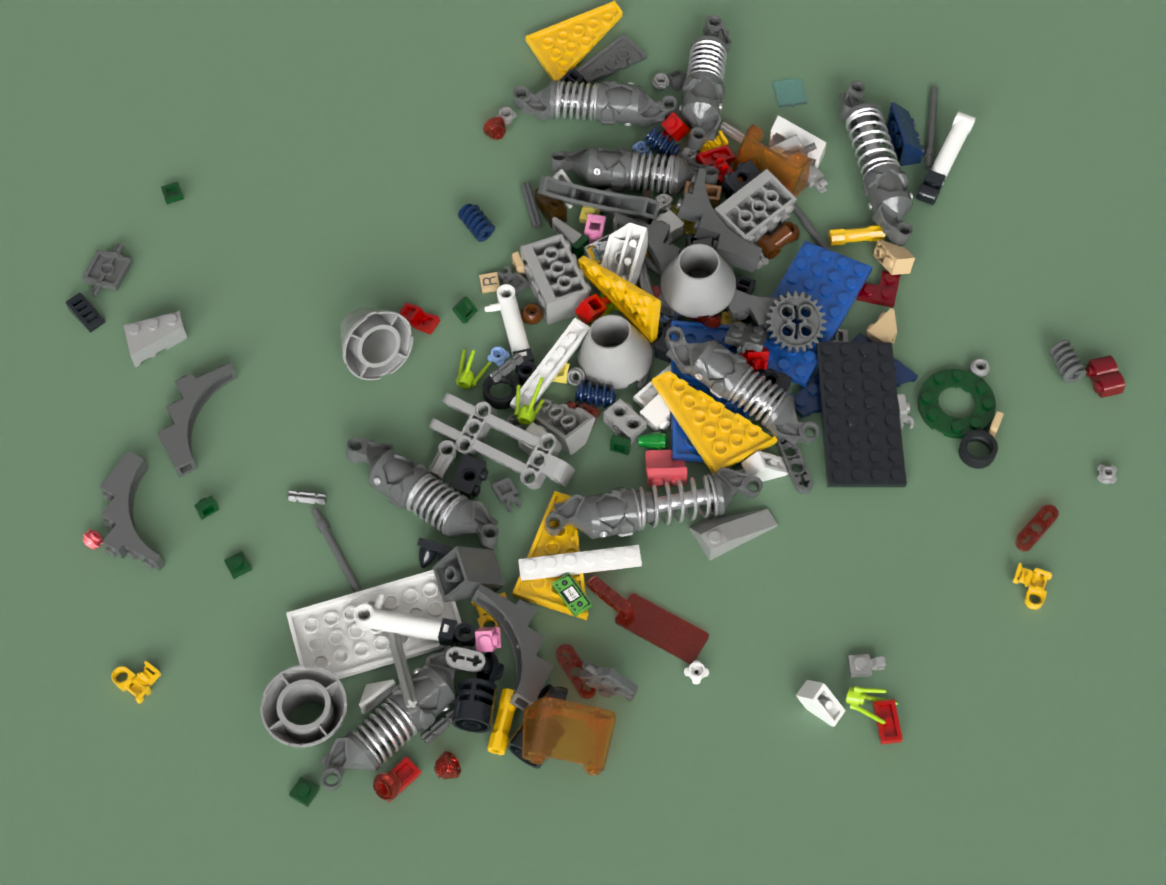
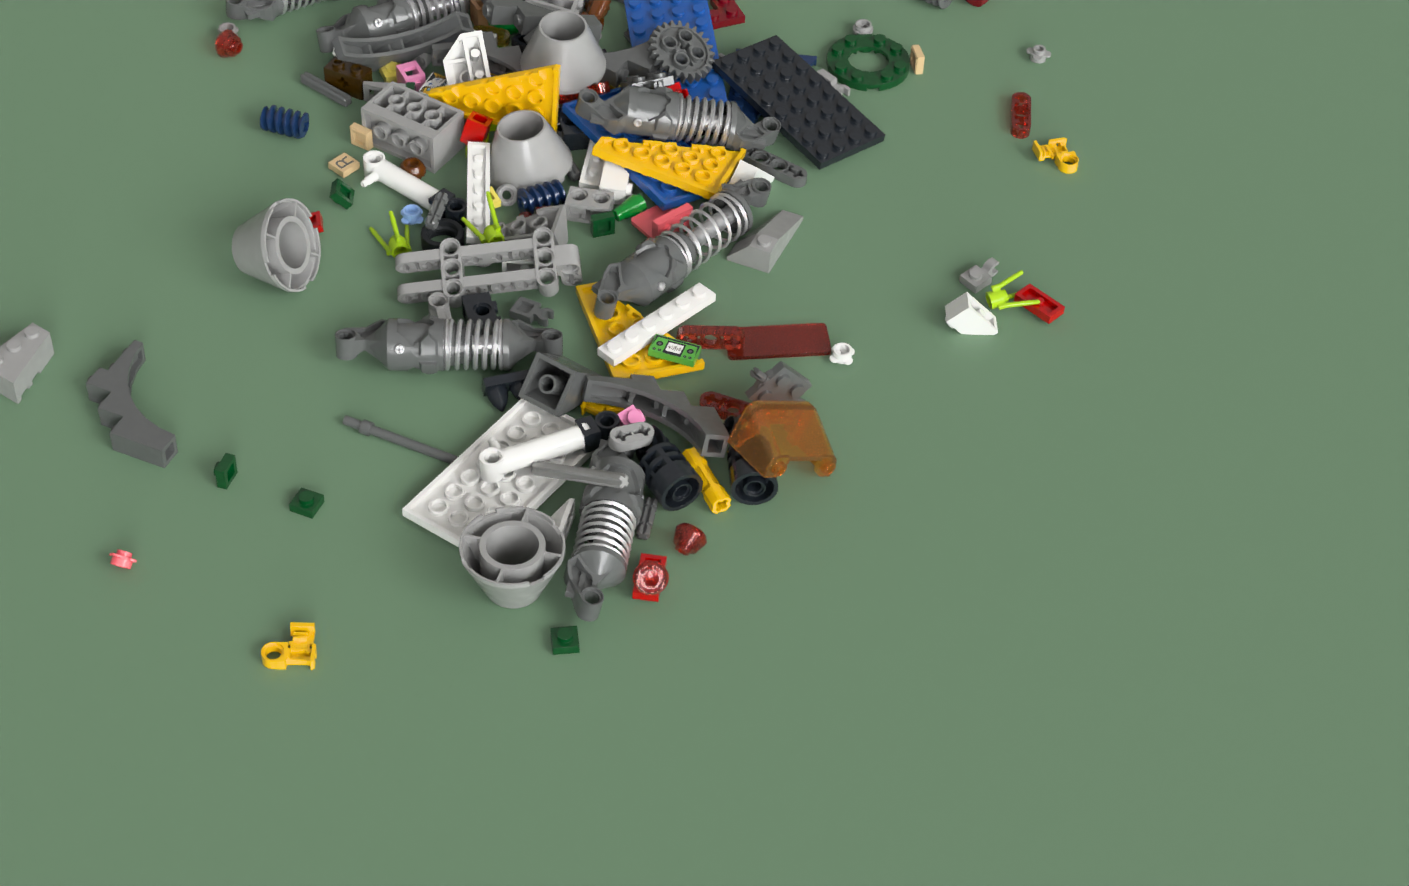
camera: 40 degrees left, 15 degrees down
(120, 491) = (135, 525): dark grey arch -> none
(307, 497) = (326, 413): axle -> none
(515, 280) = (358, 150): dark grey plate -> none
(884, 329) = (754, 31): tan slope -> none
(983, 437) = (915, 92): black tyre -> none

